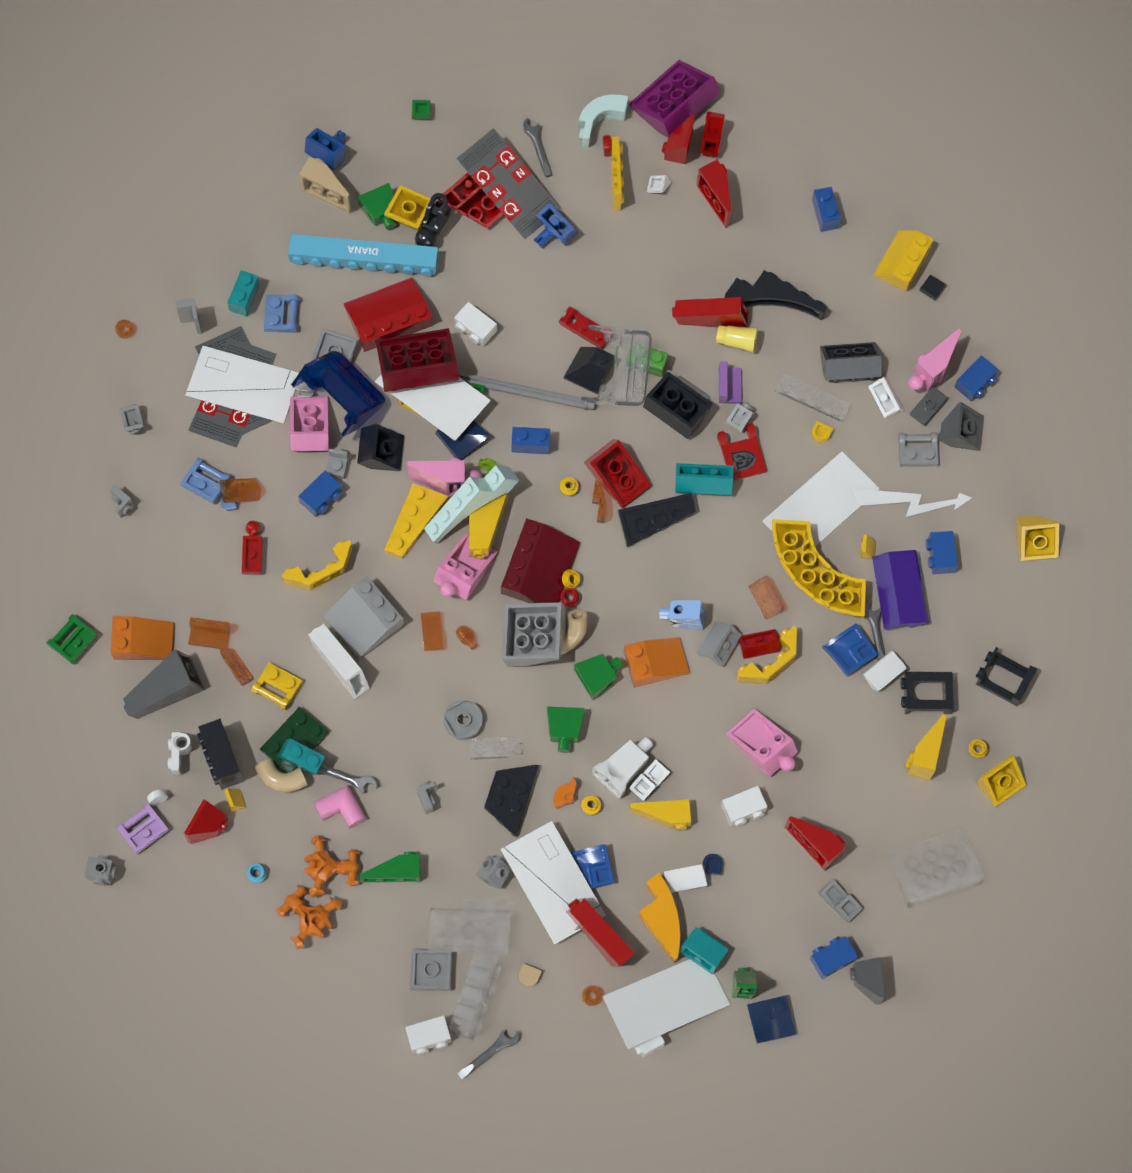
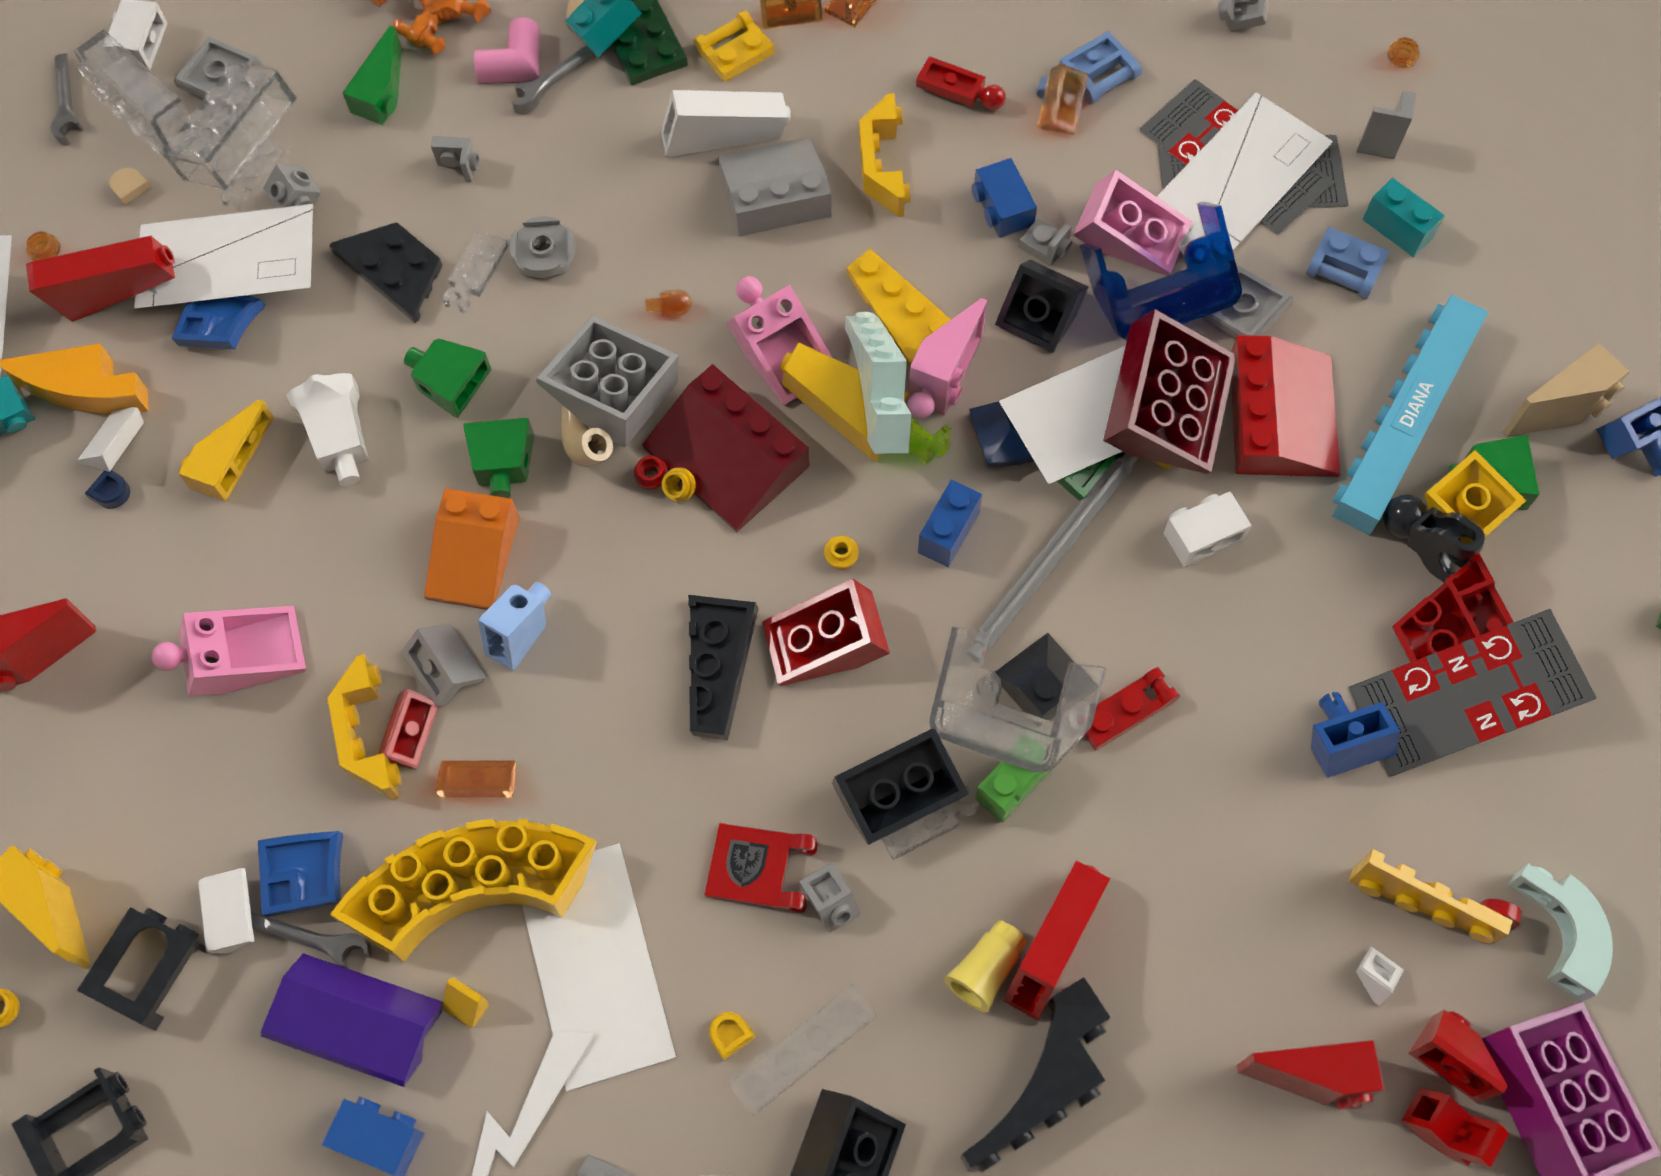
camera: 120 degrees right, 5 degrees down
(432, 631) = (700, 263): clear orange slope -> none
(533, 133) = (1568, 793): flat silver piece -> none
(565, 794) = (347, 335): orange piece -> none
(591, 811) = (309, 368): yellow plate -> none
(599, 498) = (795, 588): clear orange slope -> none
(649, 780) = (292, 459): white slope -> none
(704, 479) = (737, 766): teal brick -> none
(729, 384) = (904, 908): medium lavender panel -> none
(744, 806) = (158, 571): white brick -> none

